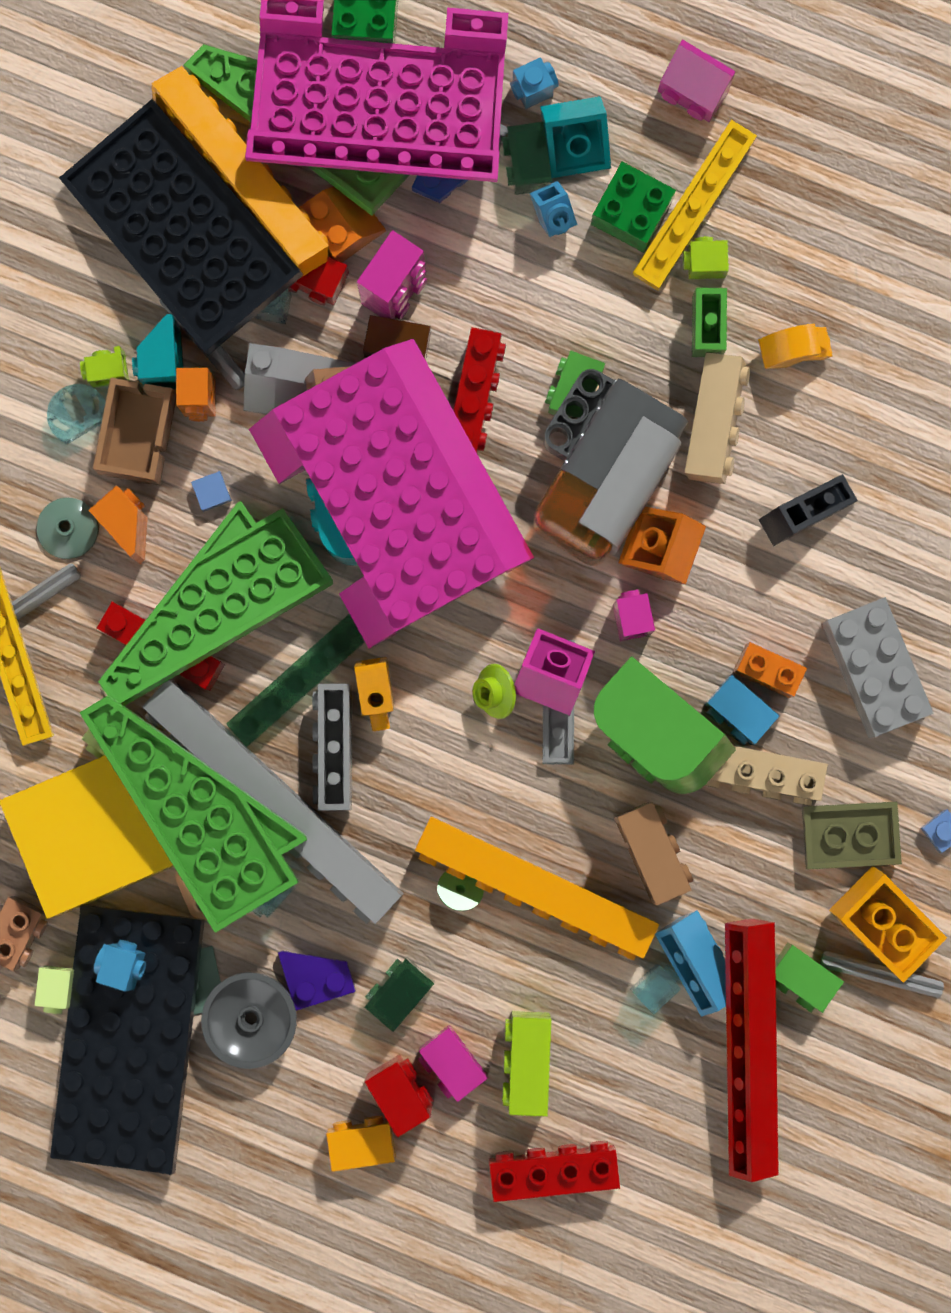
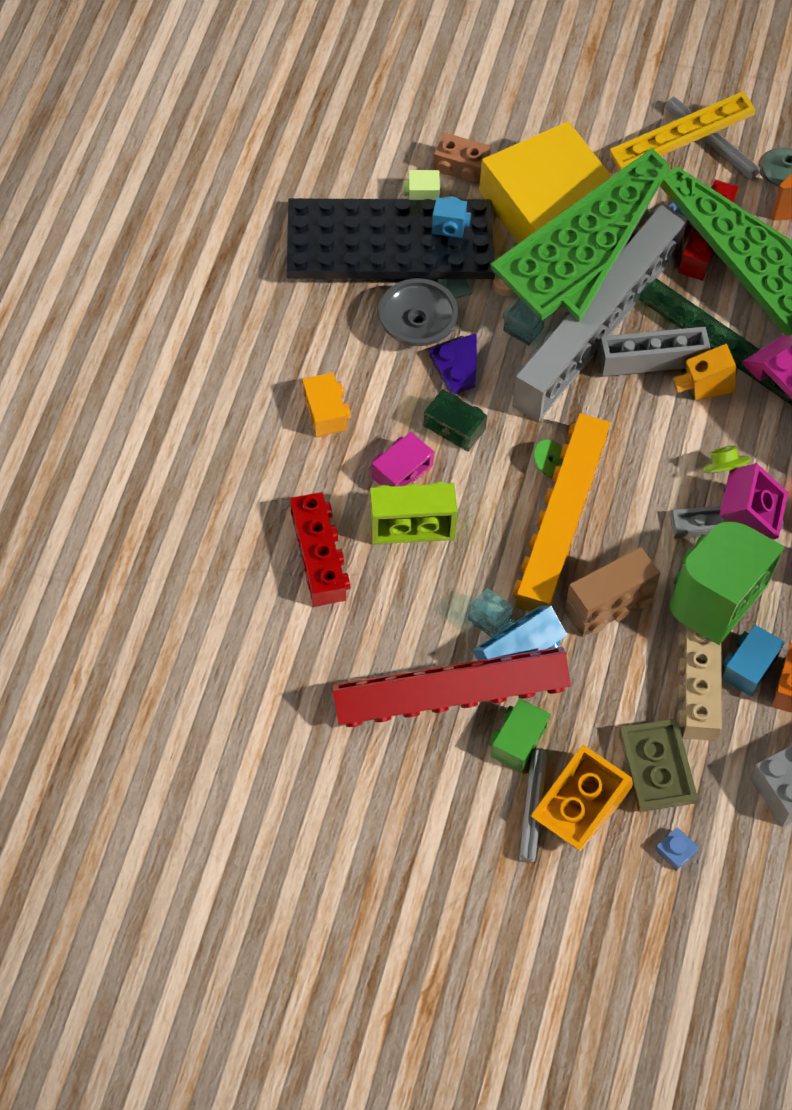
camera: 80 degrees right, 25 degrees down
(399, 1094) = (372, 420): red brick -> none

